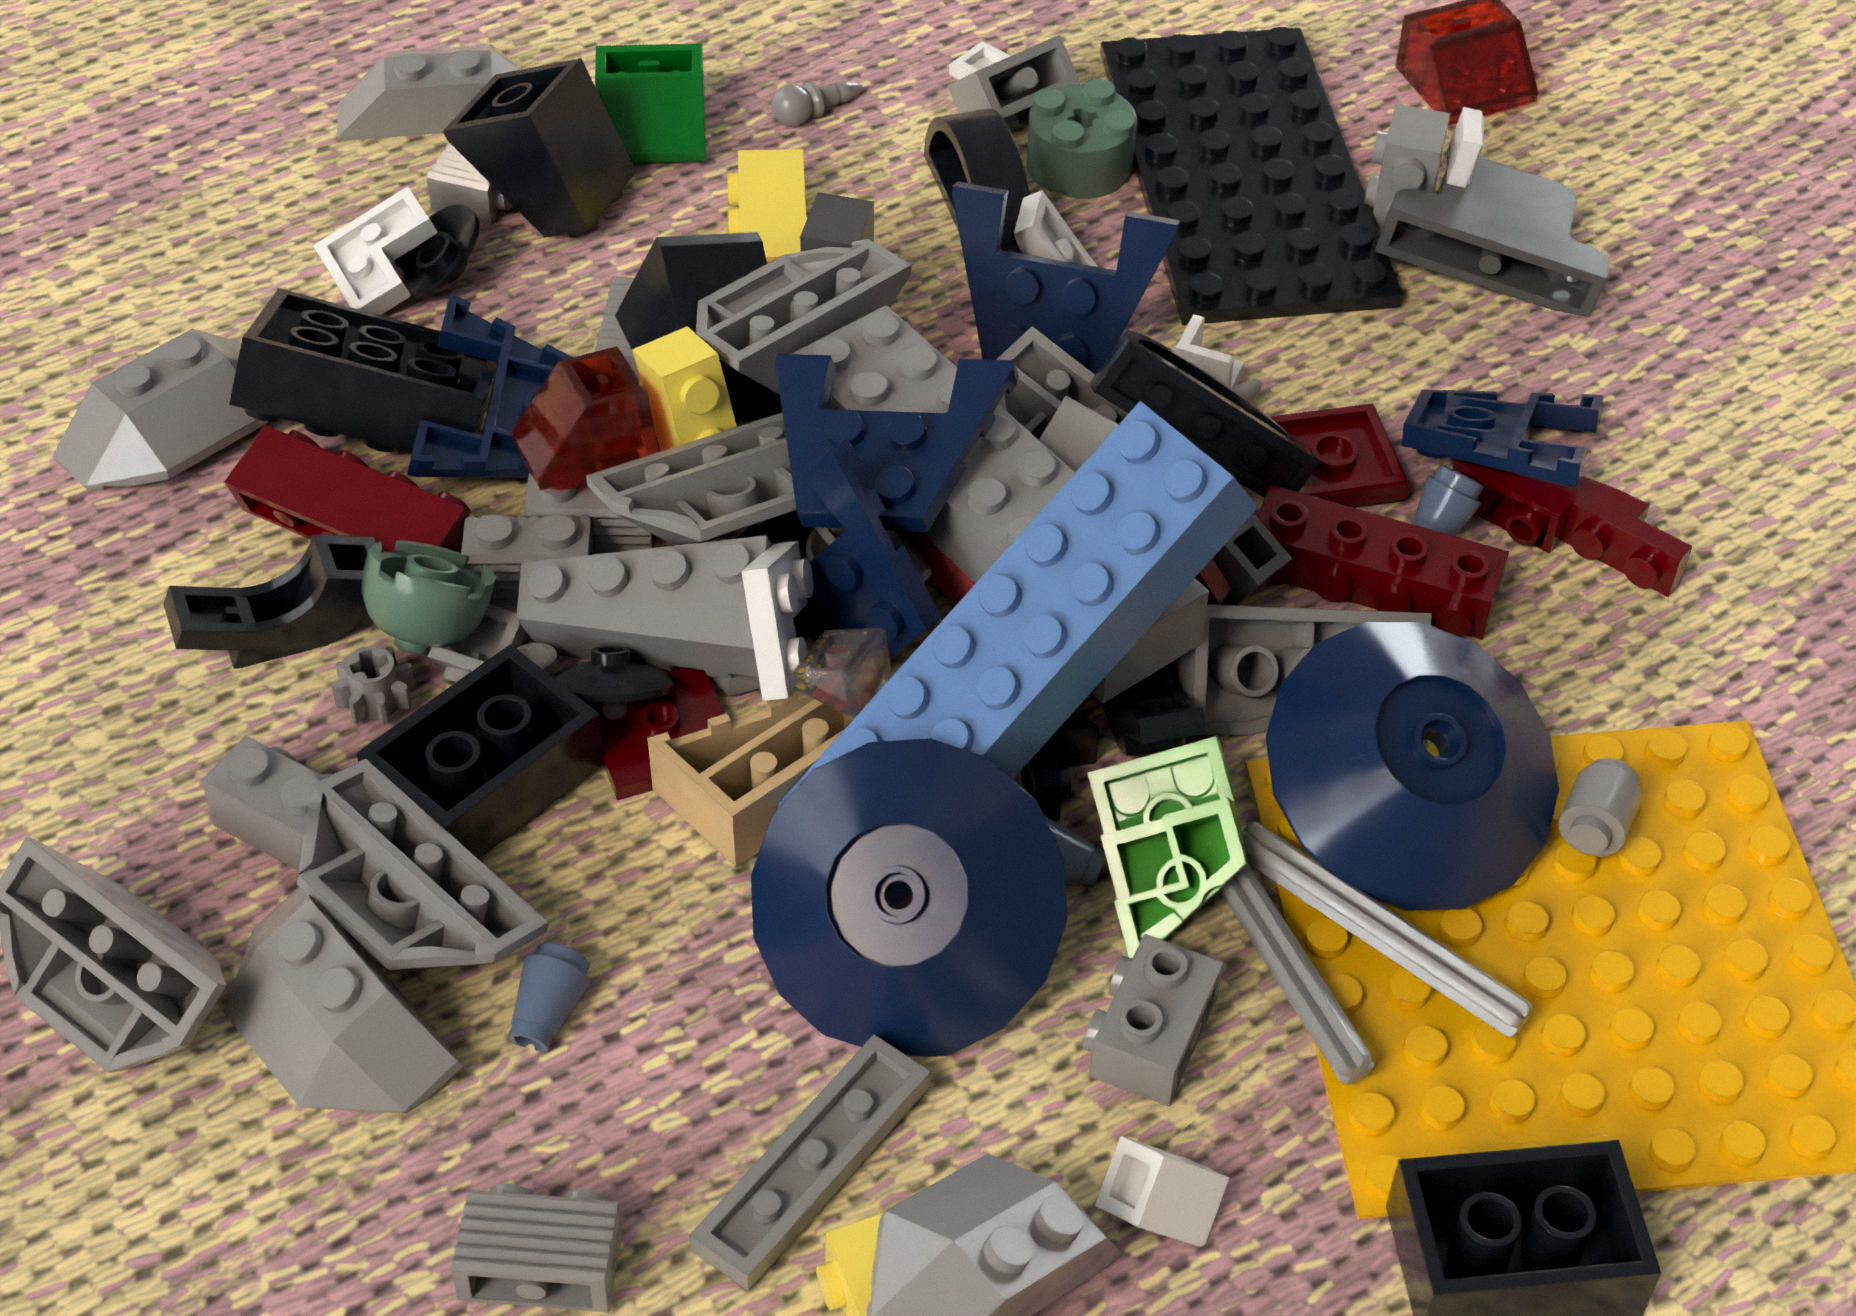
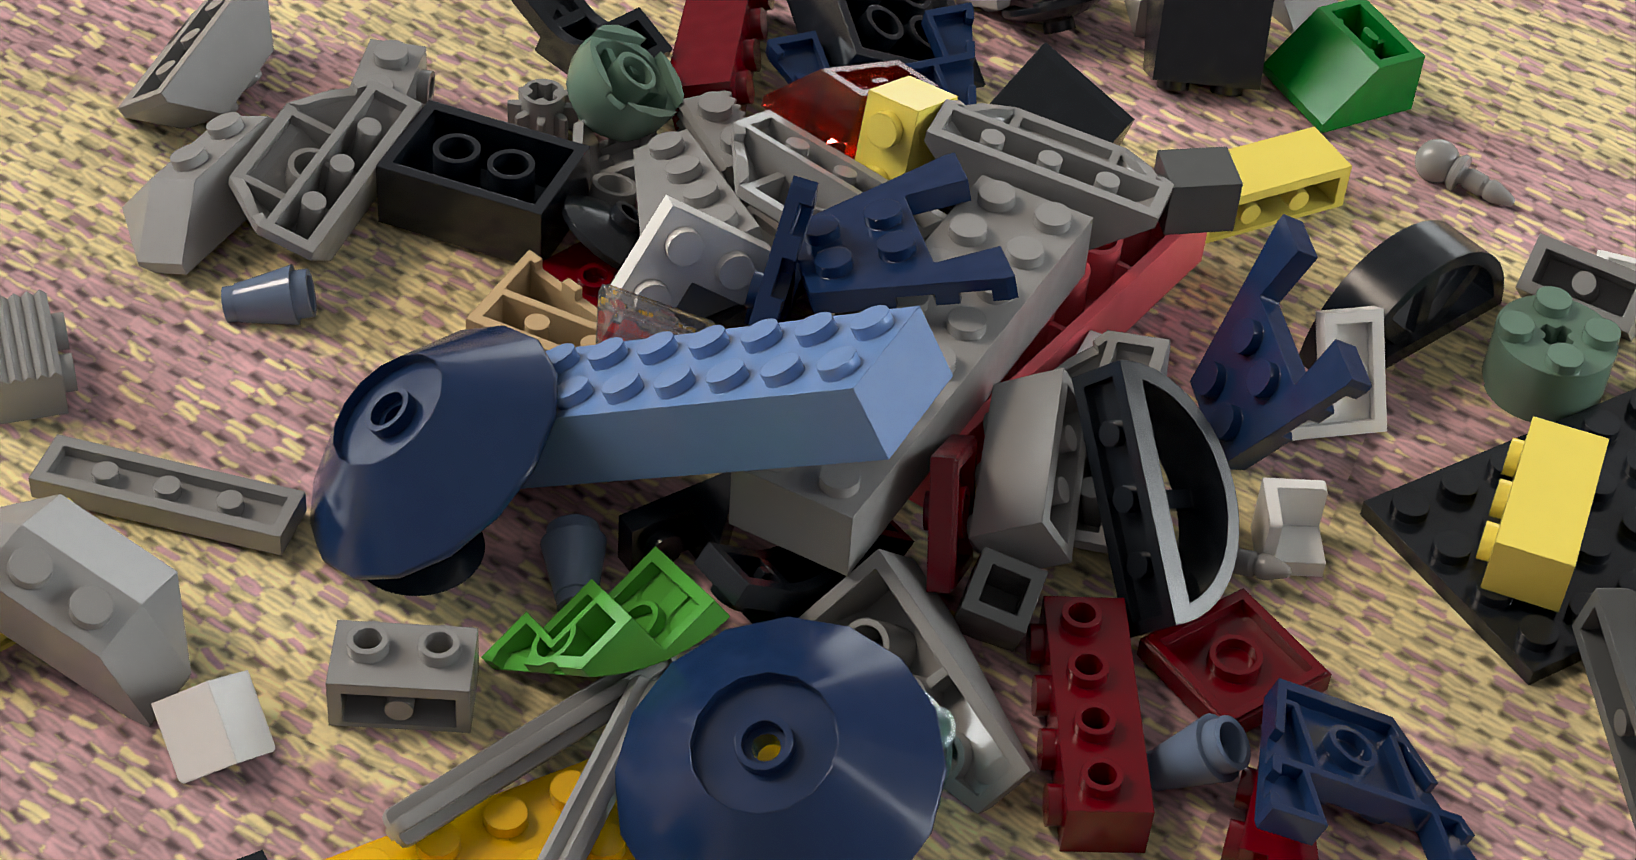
camera: 65 degrees right, 5 degrees down
(1275, 208) = (1541, 513): none -> light yellow brick

